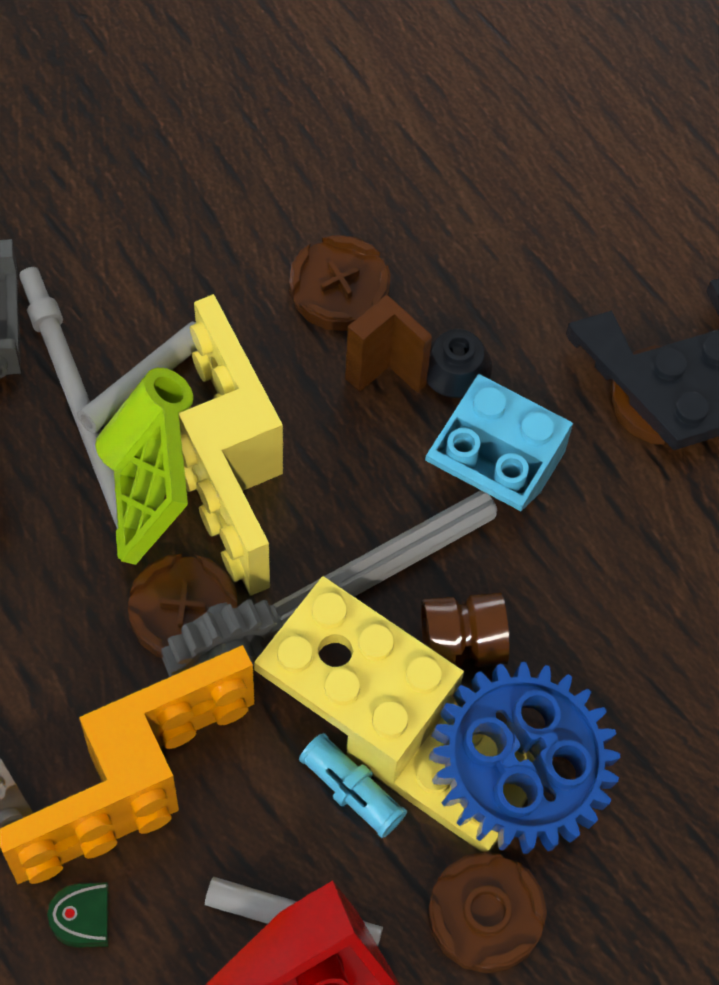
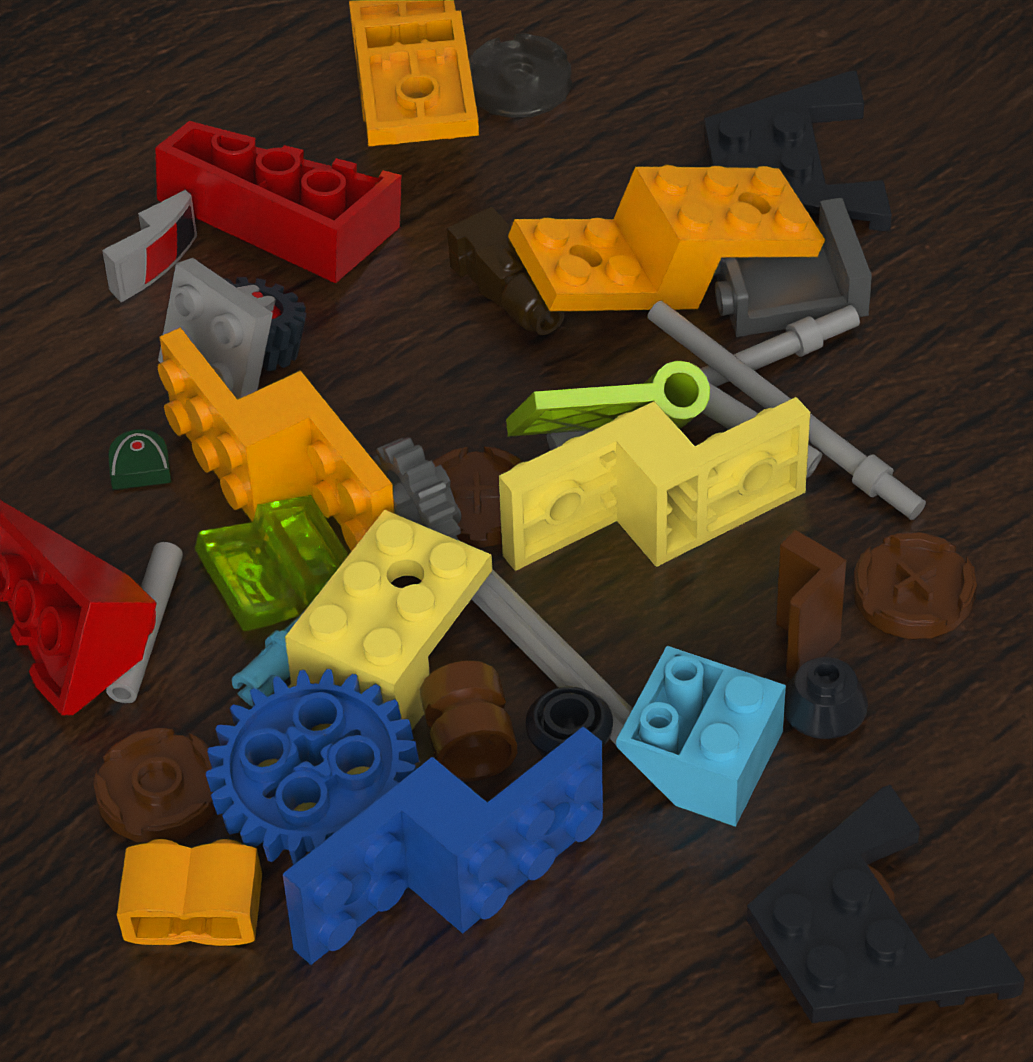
camera: 90 degrees right, 15 degrees down
(222, 285) = (868, 472): none -> light grey bar
(238, 789) = (274, 563): none -> clear neon green slope
(480, 549) = (562, 713): none -> black cone
(616, 652) = (445, 846): none -> blue bracket
(624, 882) = (190, 893): none -> light orange brick

